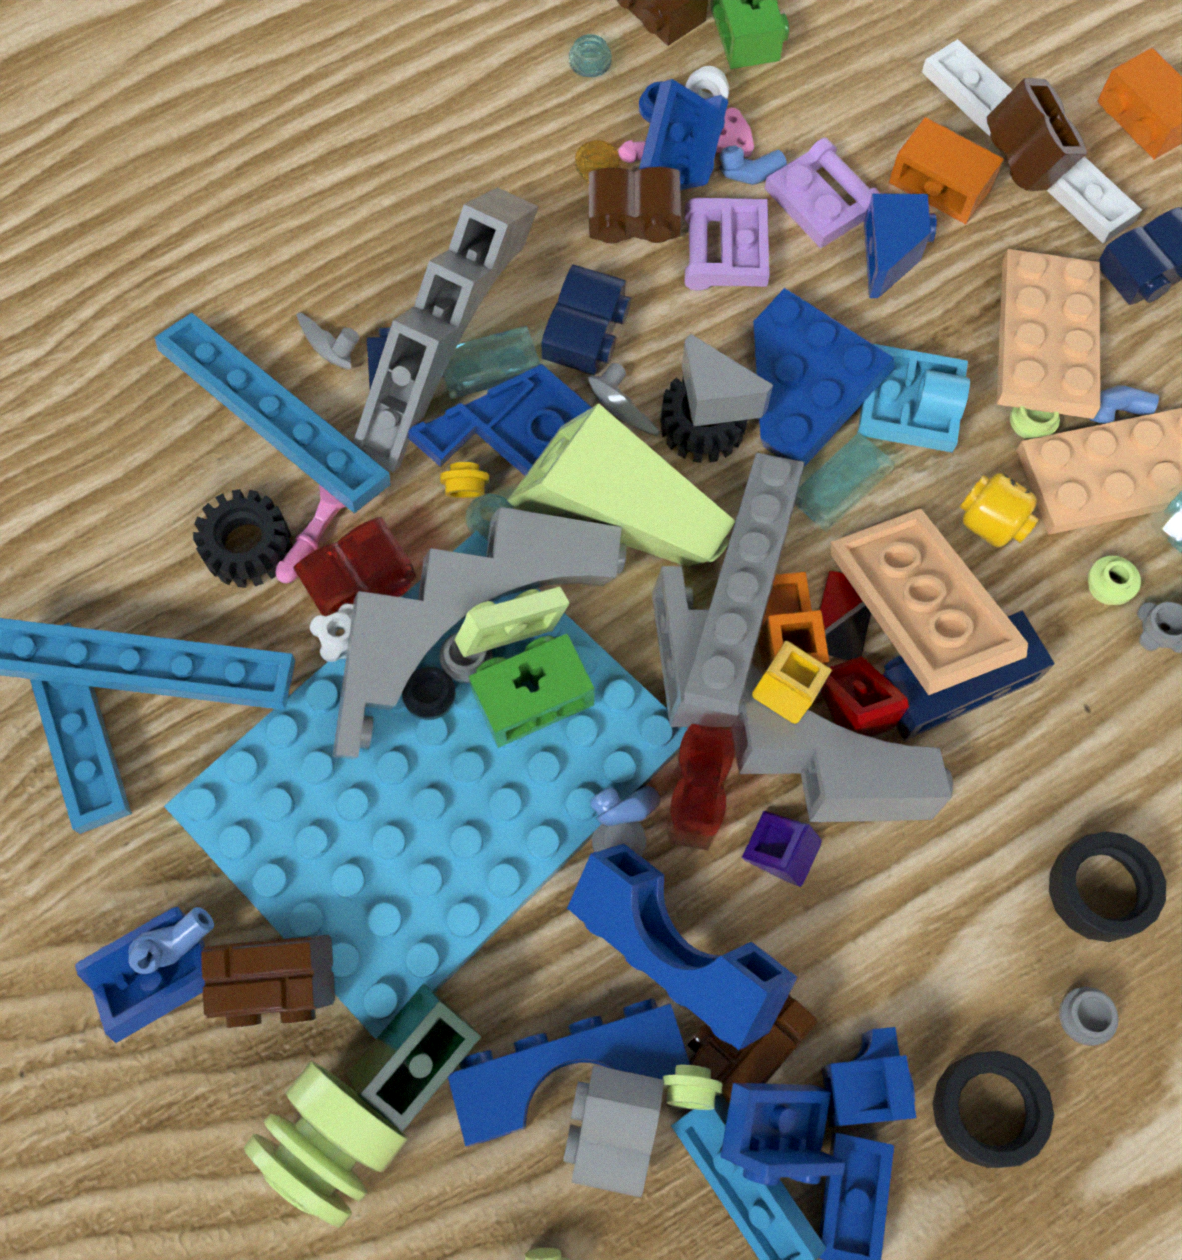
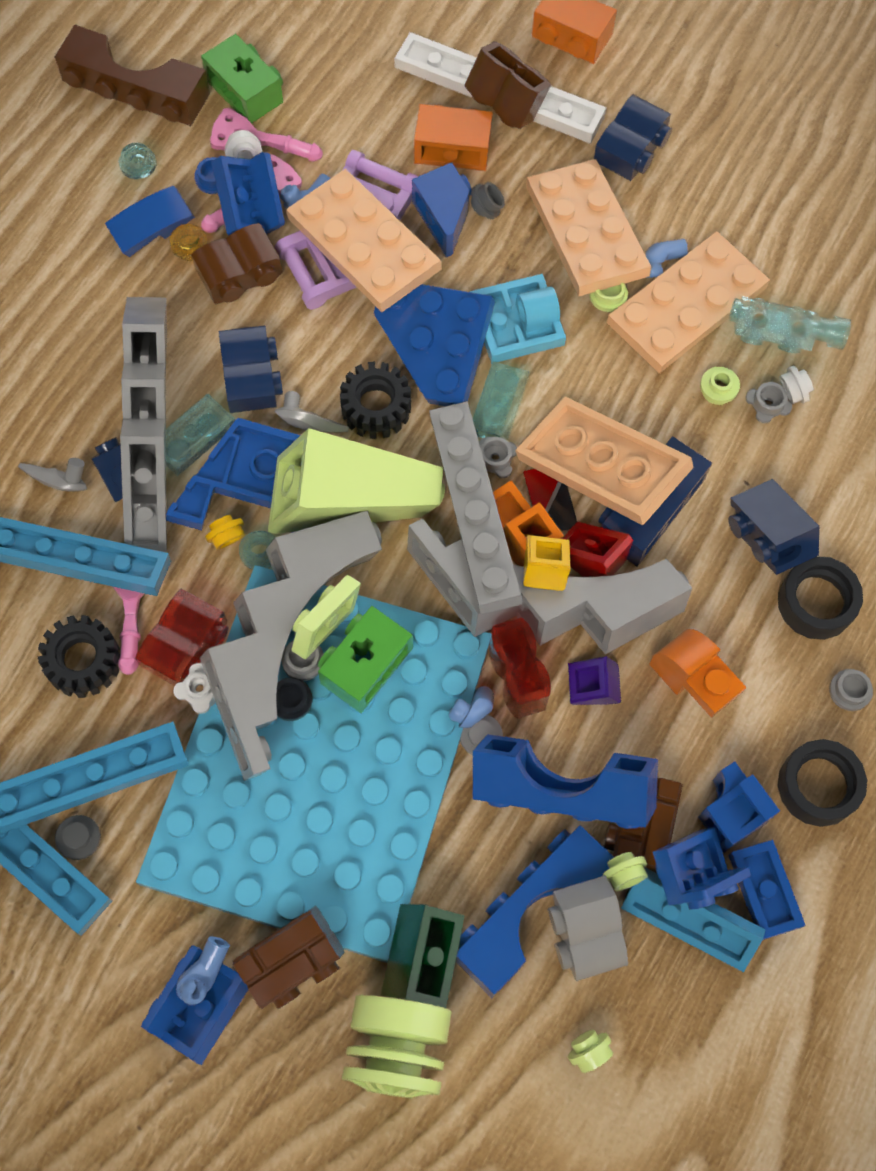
camera: 30 degrees left, 0 degrees up
(134, 727) = (78, 837): none -> dark grey plate
(567, 118) = (148, 219): none -> blue slope
(720, 387) = (380, 374): light grey slope -> none
(756, 102) = (224, 129): none -> bright pink piece
(783, 237) = (364, 240): none -> light nougat plate
(815, 529) = (504, 449): none -> light grey plate
(907, 888) = (694, 665): none -> orange brick
(948, 254) = (487, 200): none -> dark grey plate
(999, 510) = (619, 372): yellow head -> none
(1092, 775) = (774, 527): none -> dark blue brick

